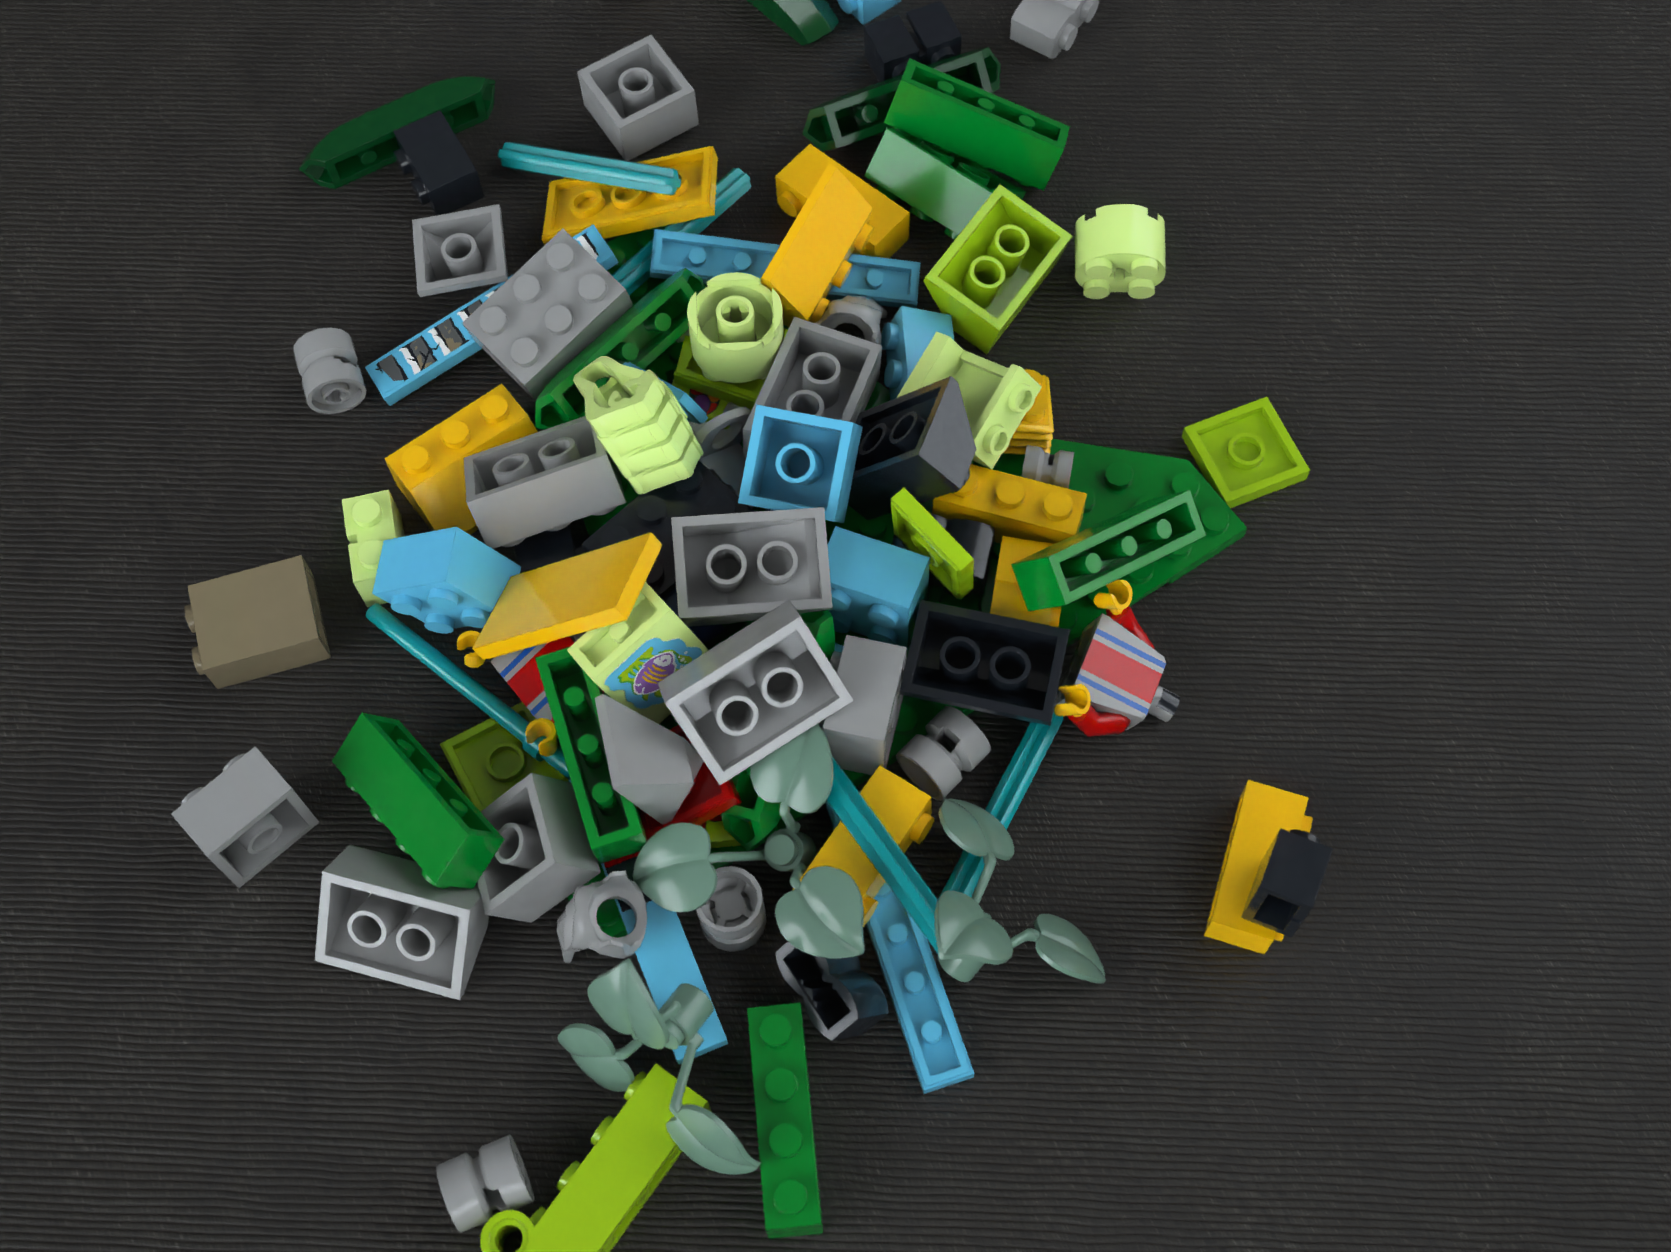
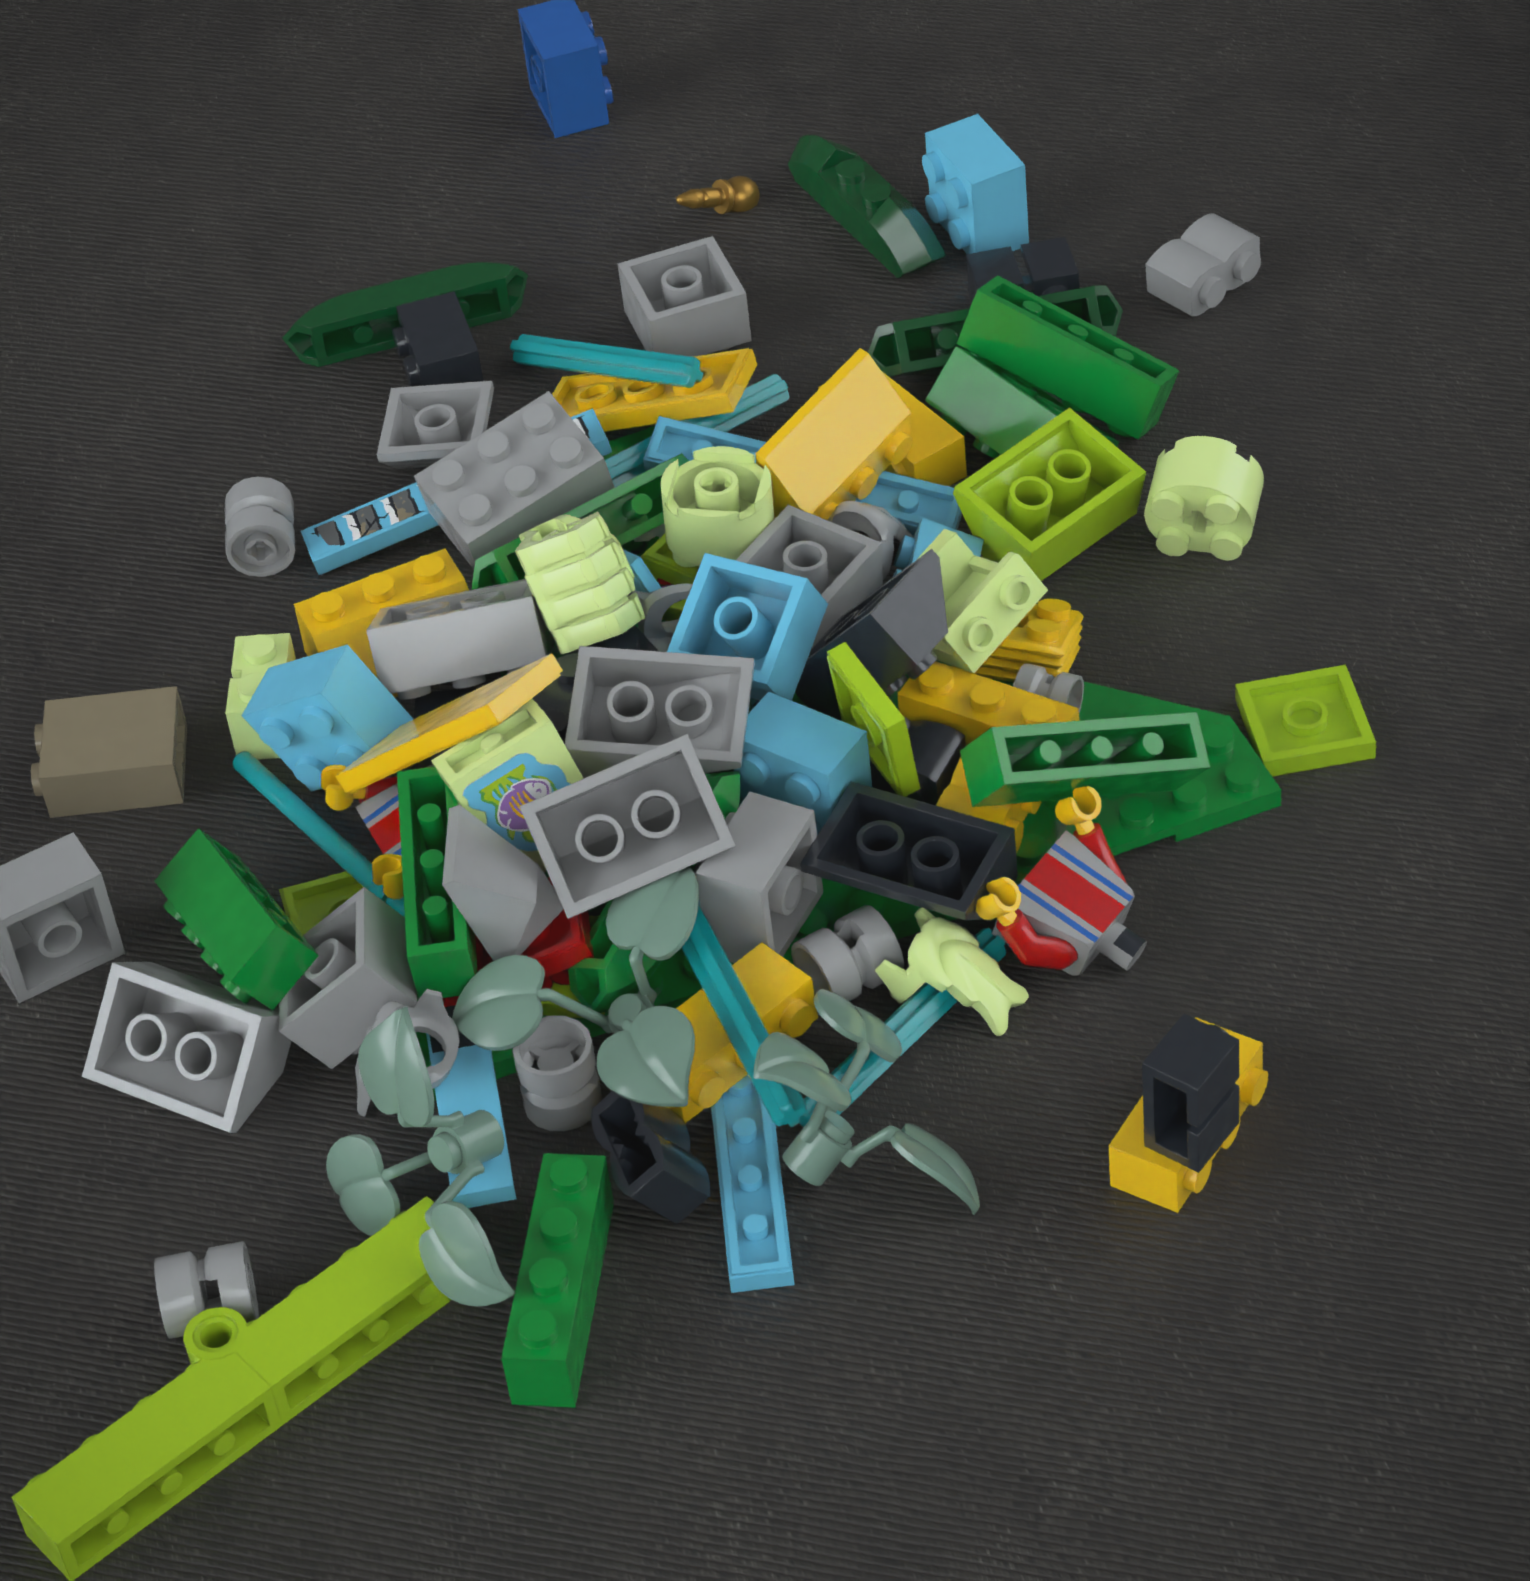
camera: 15 degrees right, 20 degrees down
(1033, 752) = (952, 961): none -> yellowish green hair

